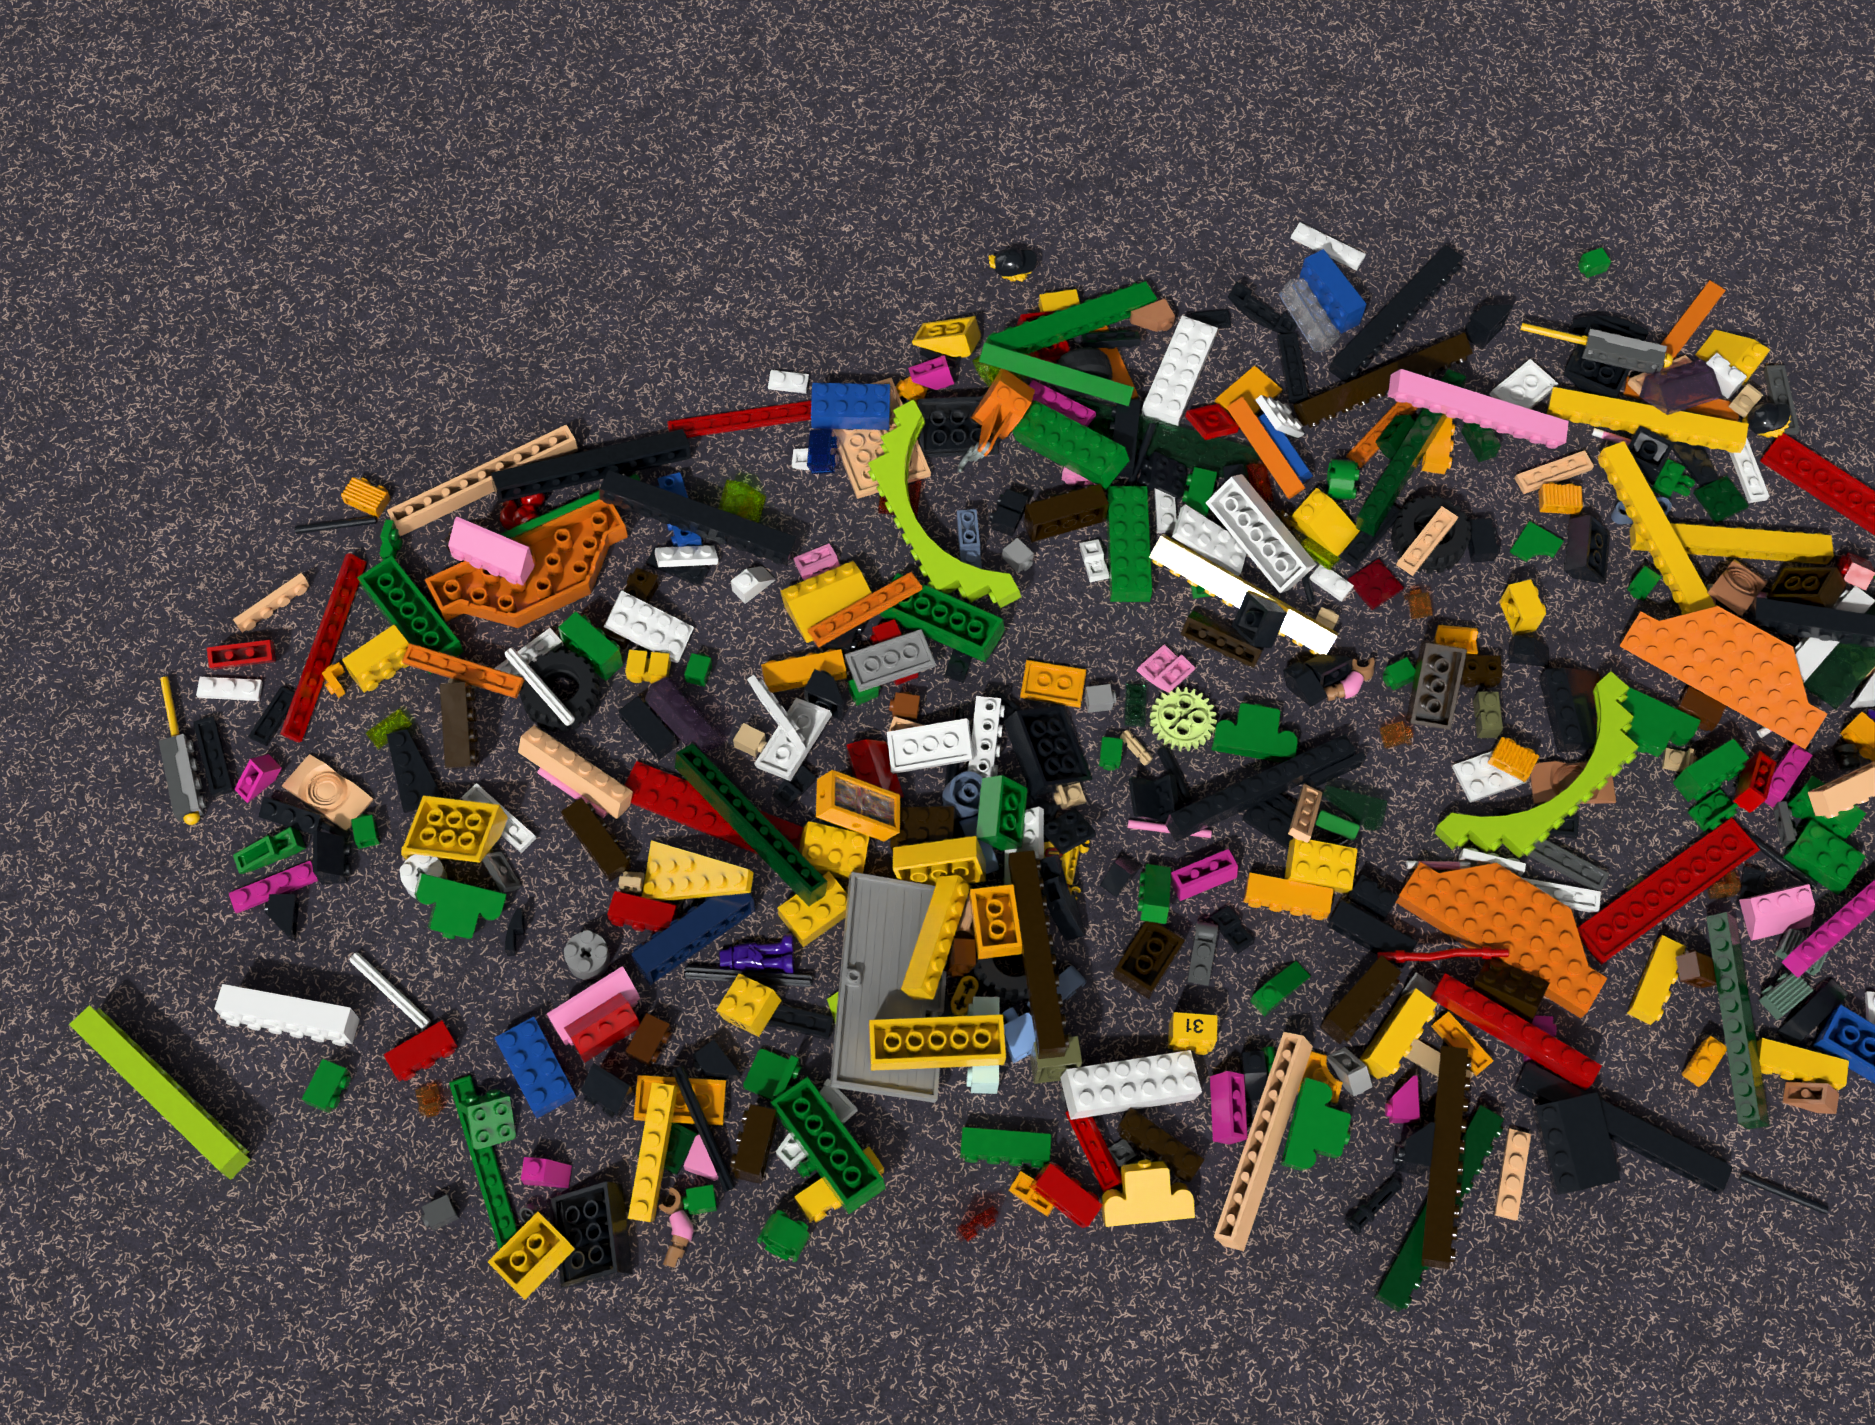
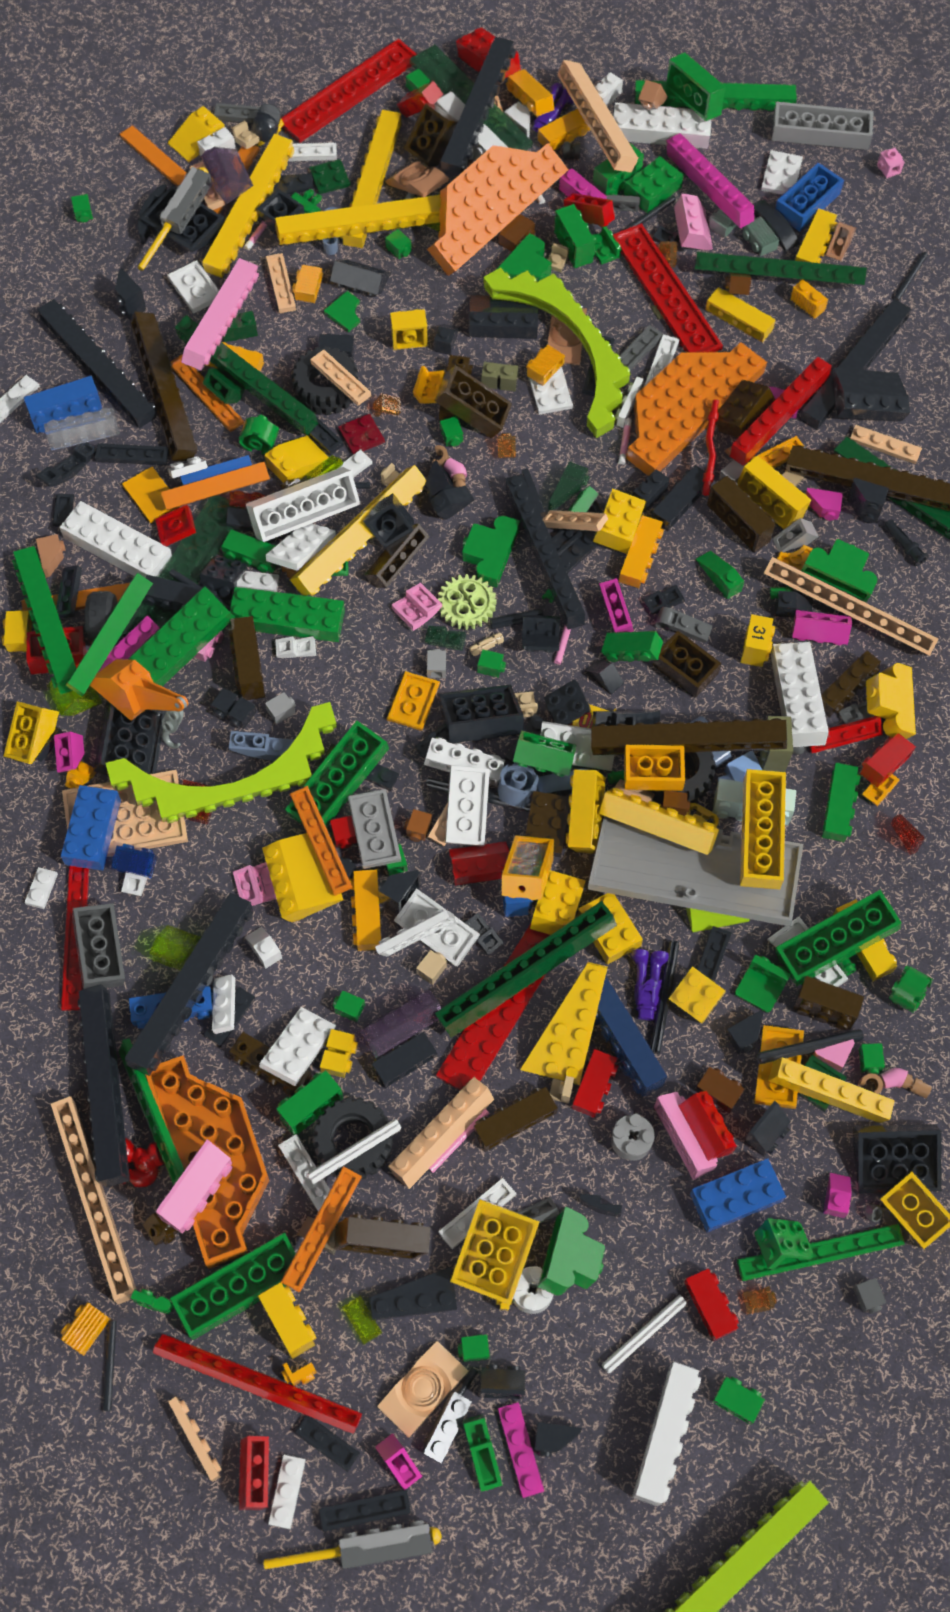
camera: 80 degrees left, 0 degrees up
(728, 436) = (98, 946): none -> dark grey brick

